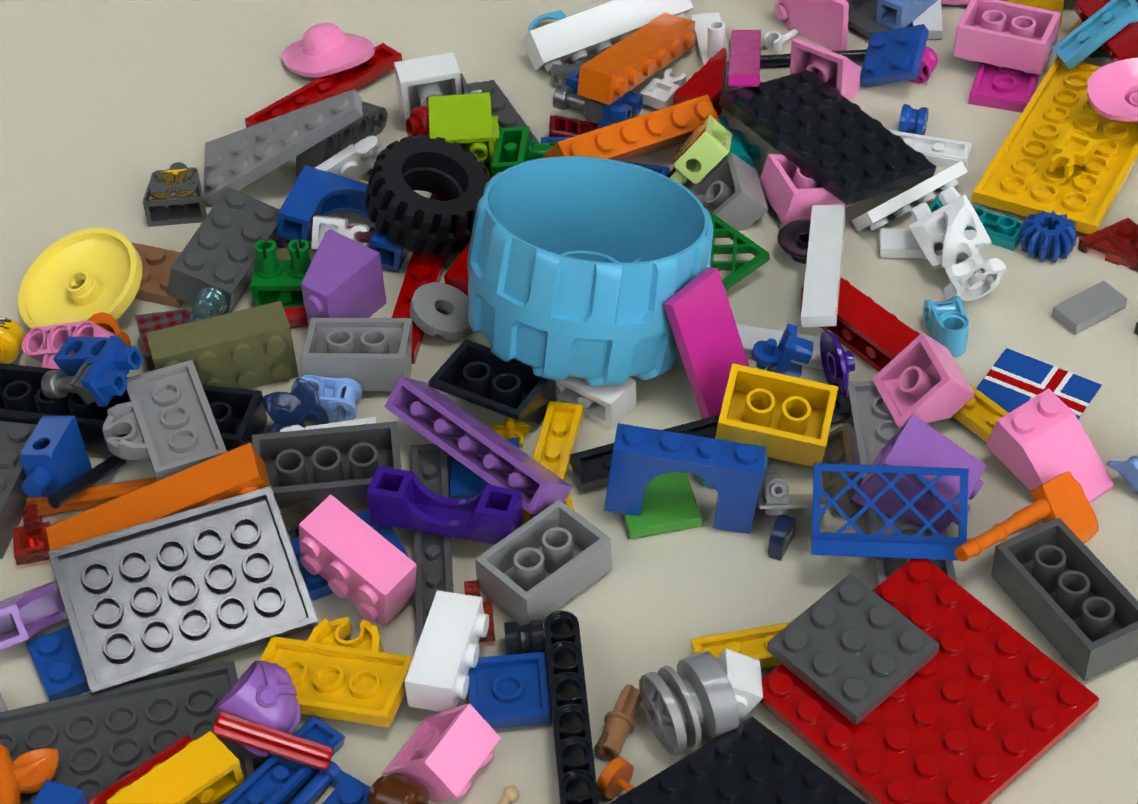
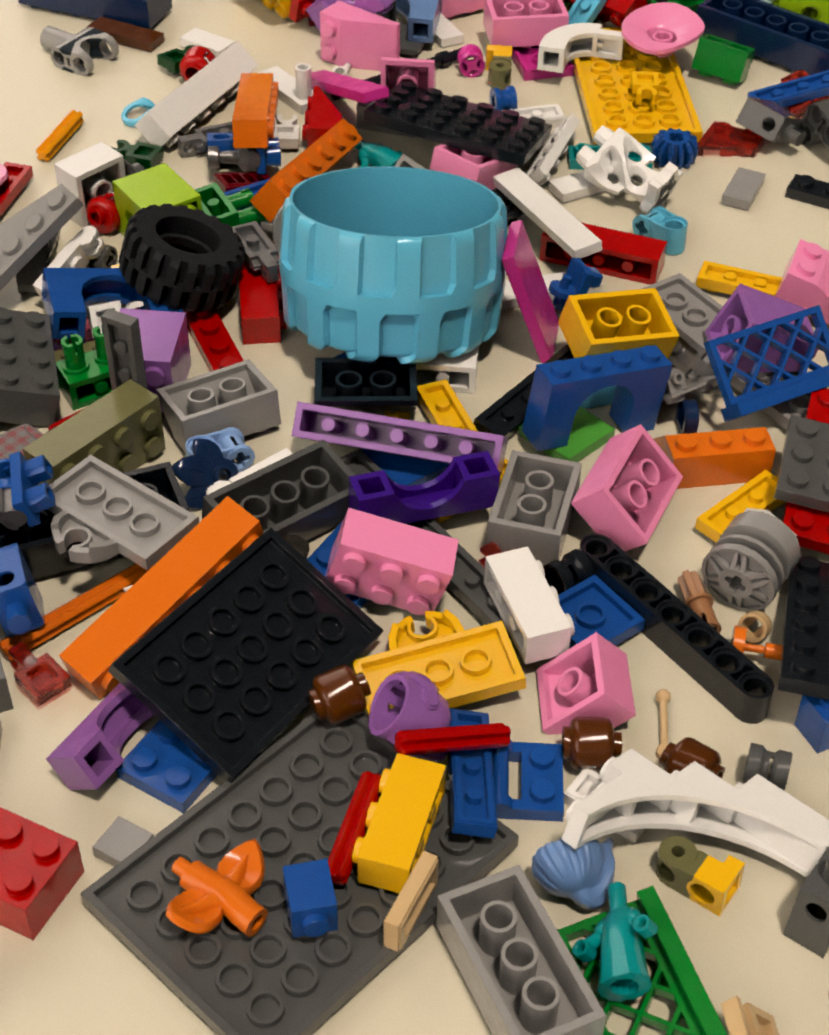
camera: 35 degrees left, 0 degrees up
(85, 481) = (53, 603): black bar -> none
(207, 304) = (43, 413): clear light blue cone -> none
(221, 659) = (339, 694): none -> reddish brown head
(283, 282) = (123, 348): none -> dark grey plate
(444, 297) = (259, 347): light grey tile -> none
(457, 28) = (59, 135): none -> light orange axle
(509, 73) = (143, 153): none -> dark green plate
(636, 583) = (627, 489): none -> bright pink brick
(649, 764) = (762, 632): none -> tan hinge
(701, 152) = (374, 151): yellowish green torso -> none
(765, 582) = (719, 455): none -> orange slope
(836, 361) = (617, 273): dark purple dish -> none
(894, 55) = (453, 56): blue plate -> none
(923, 383) = (698, 270): bright pink slope -> none
(948, 81) = (499, 65): none -> olive leg
(1020, 378) = (754, 253): blue sticker -> none
(1035, 75) = (578, 41): none -> white arch

